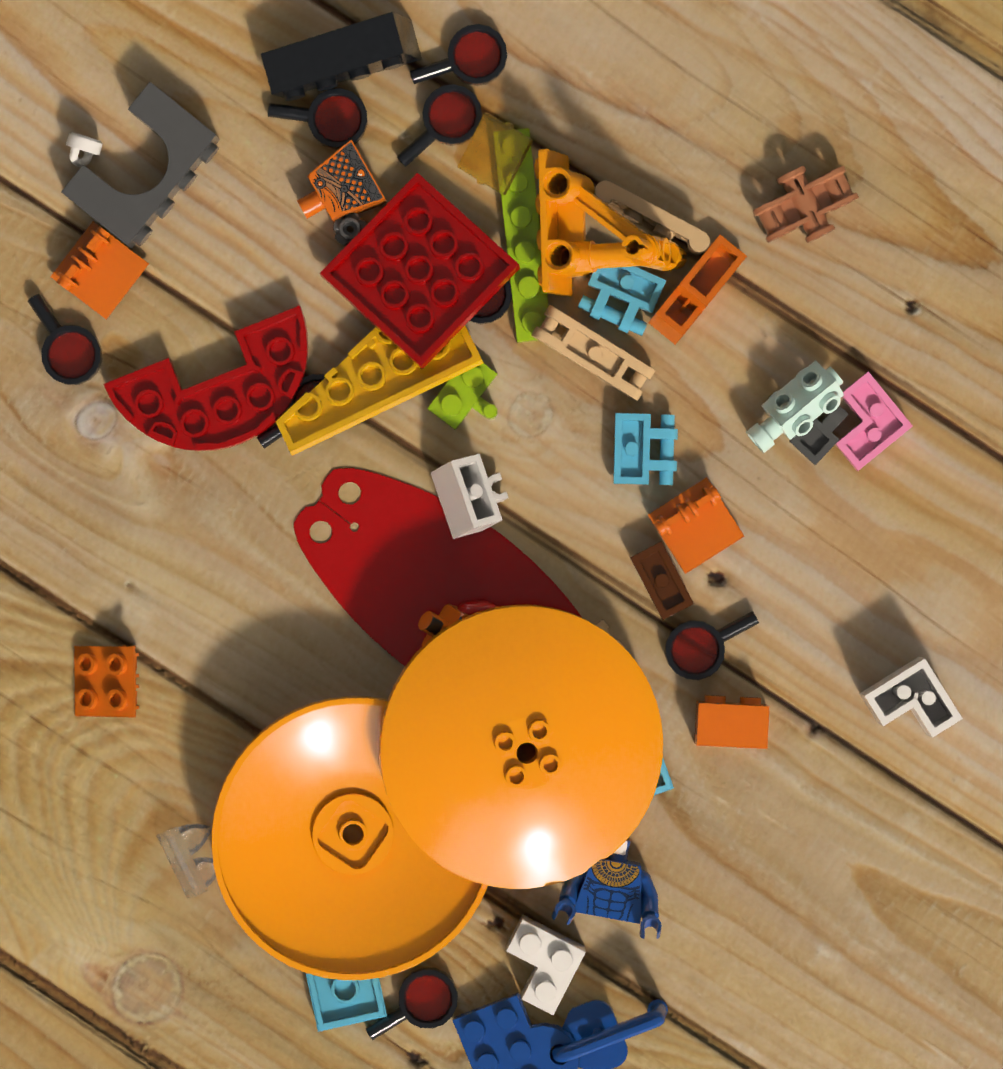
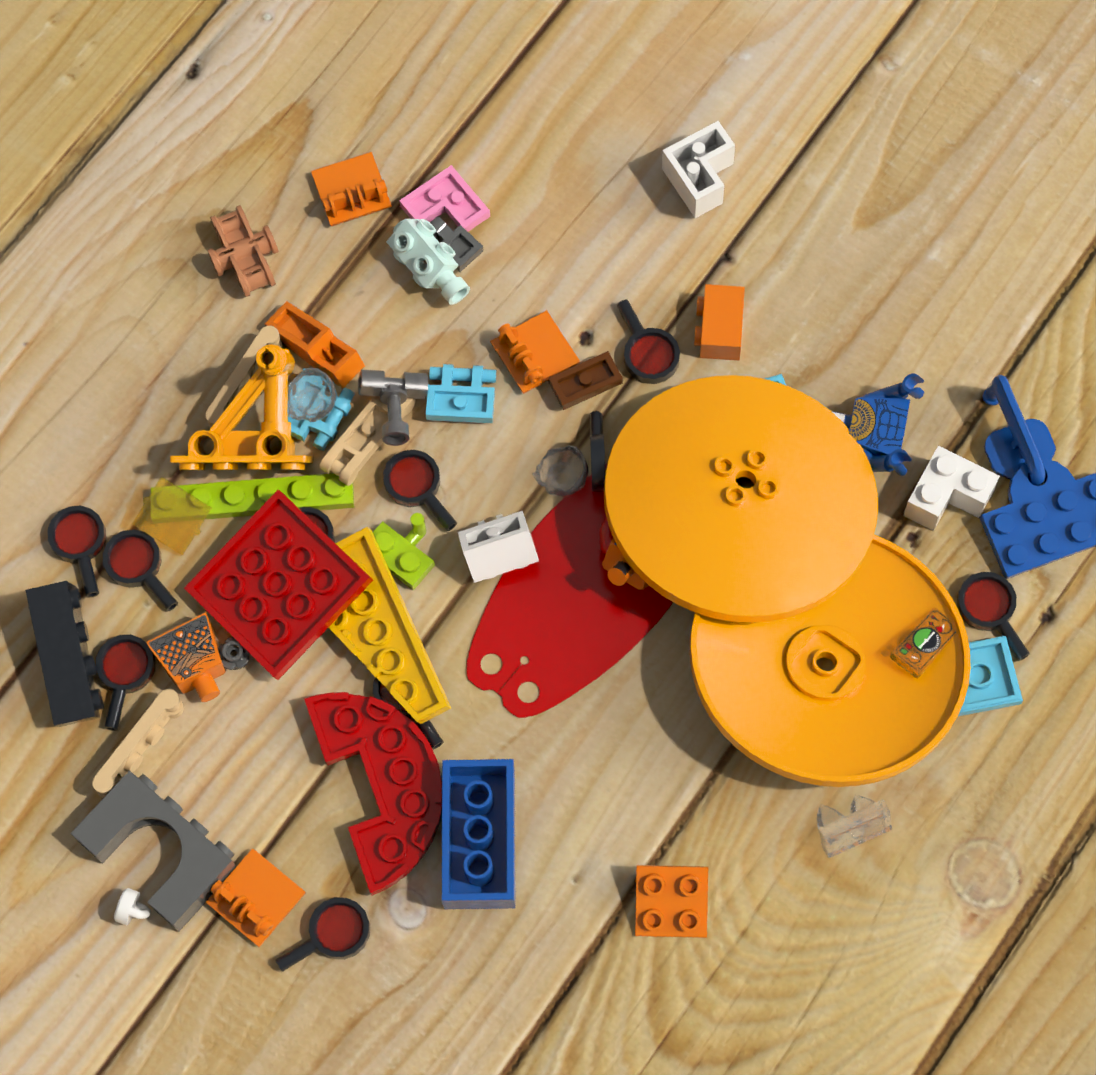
camera: 80 degrees left, 20 degrees down
(162, 488) = (478, 834): none -> blue brick
(237, 131) = (144, 733): none -> tan plate
(373, 934) = (924, 643): none -> clear yellow tile
(546, 403) = (414, 480): none -> piece
(554, 559) = (562, 471): none -> clear hair
(578, 595) = (597, 451): none -> black piece
(625, 291) = (311, 395): none -> clear hair
(636, 378) = (393, 393): none -> flat silver bar
(886, 317) = (351, 189): none -> orange hinge

